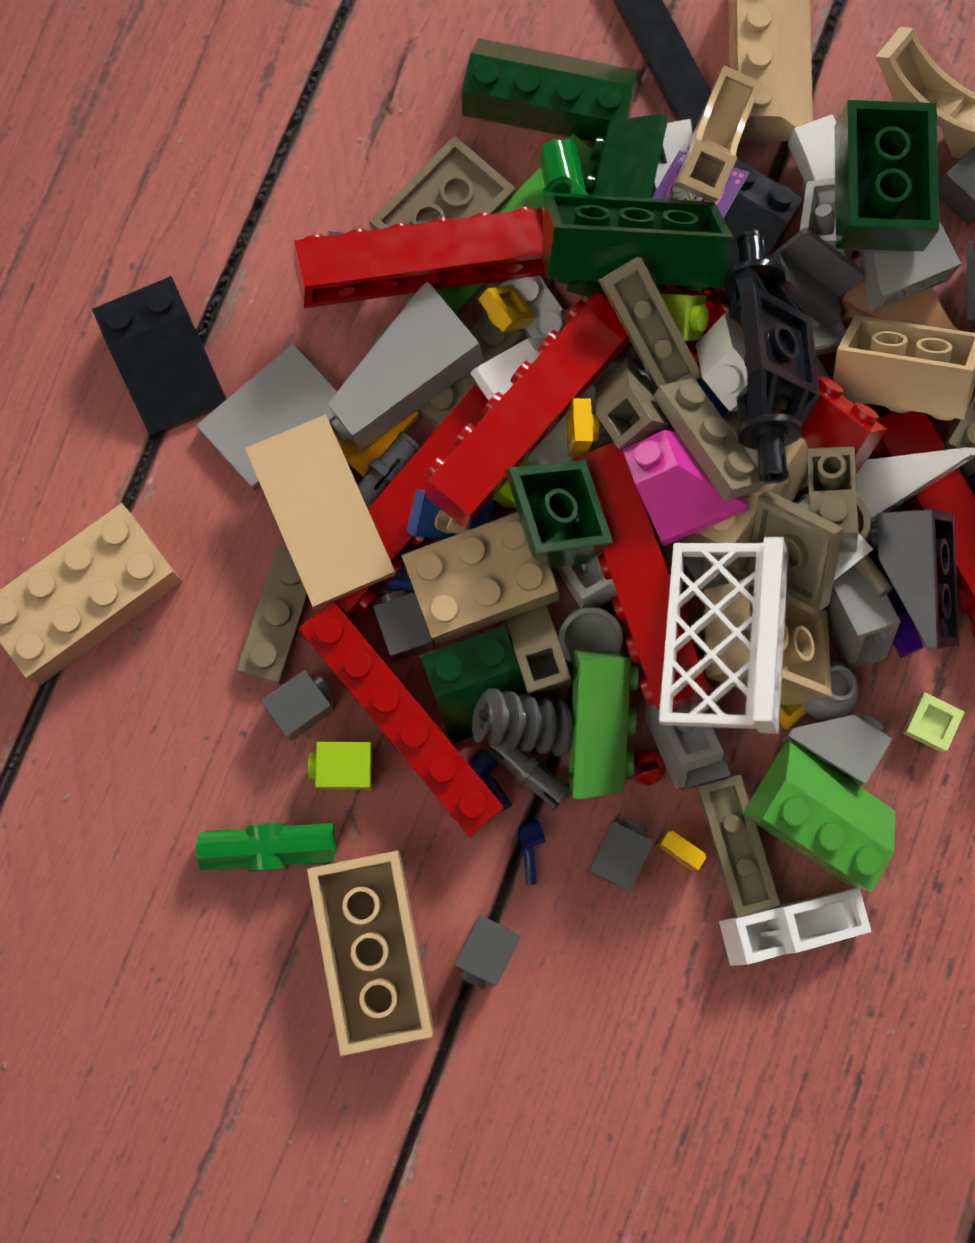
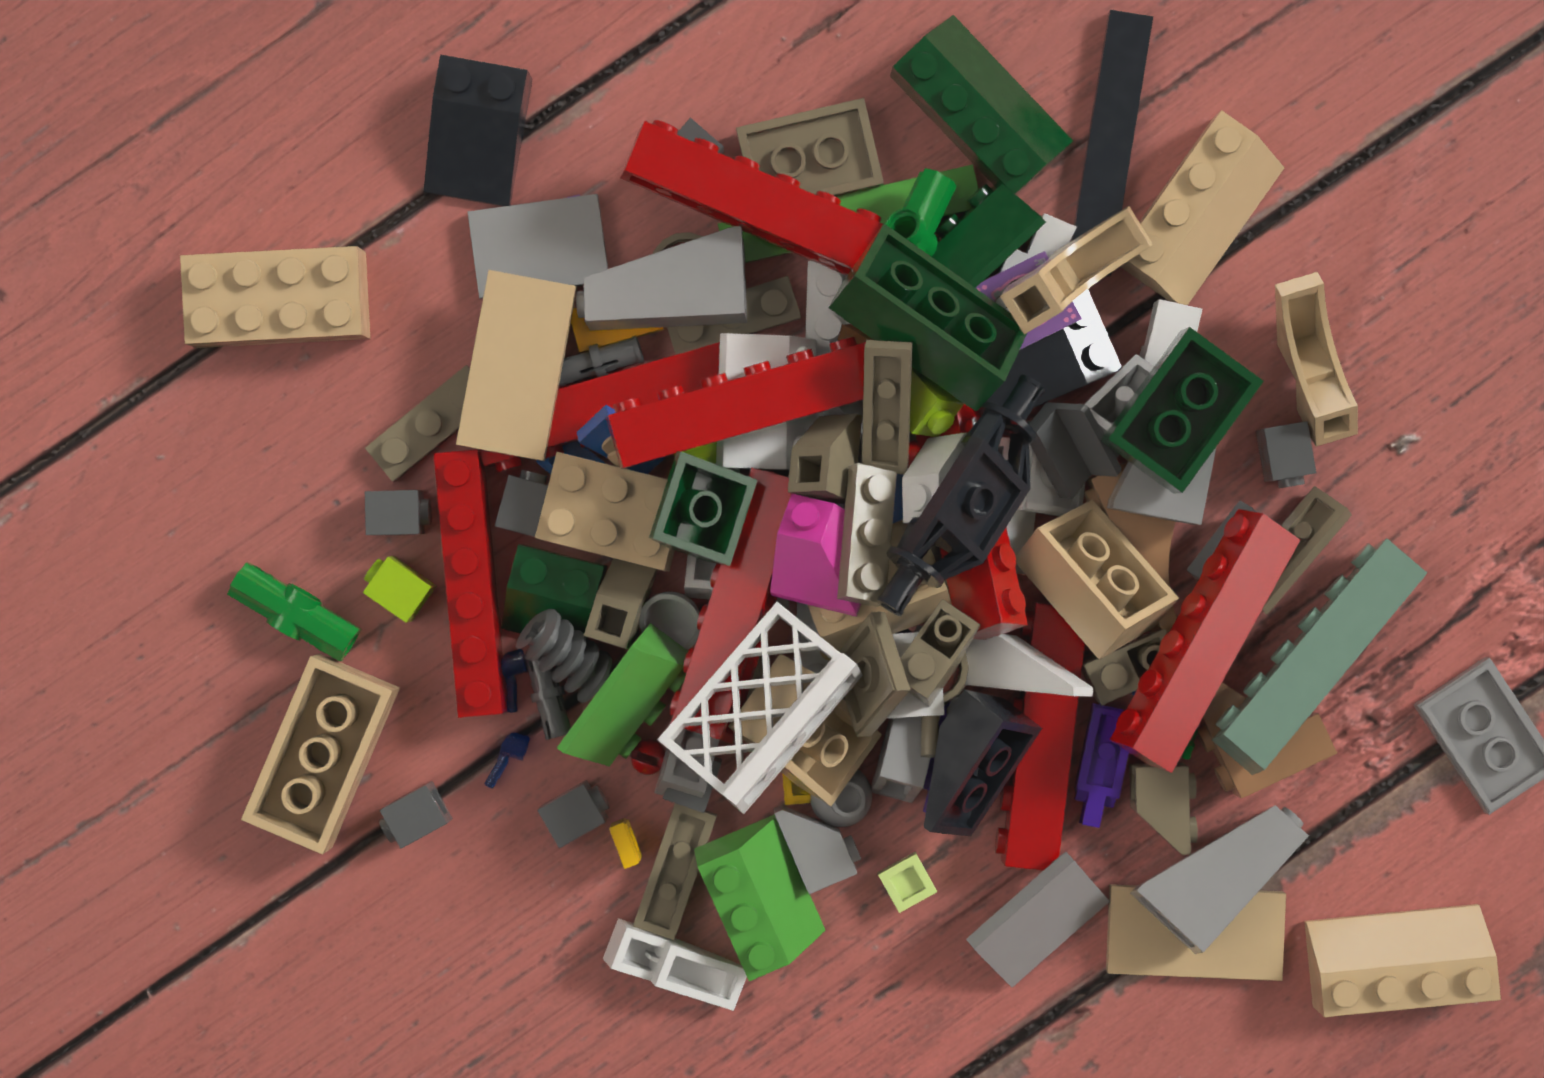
camera: 40 degrees right, 10 degrees up
(507, 308) = (797, 291): yellow plate -> none
(581, 427) = (775, 449): yellow plate -> none

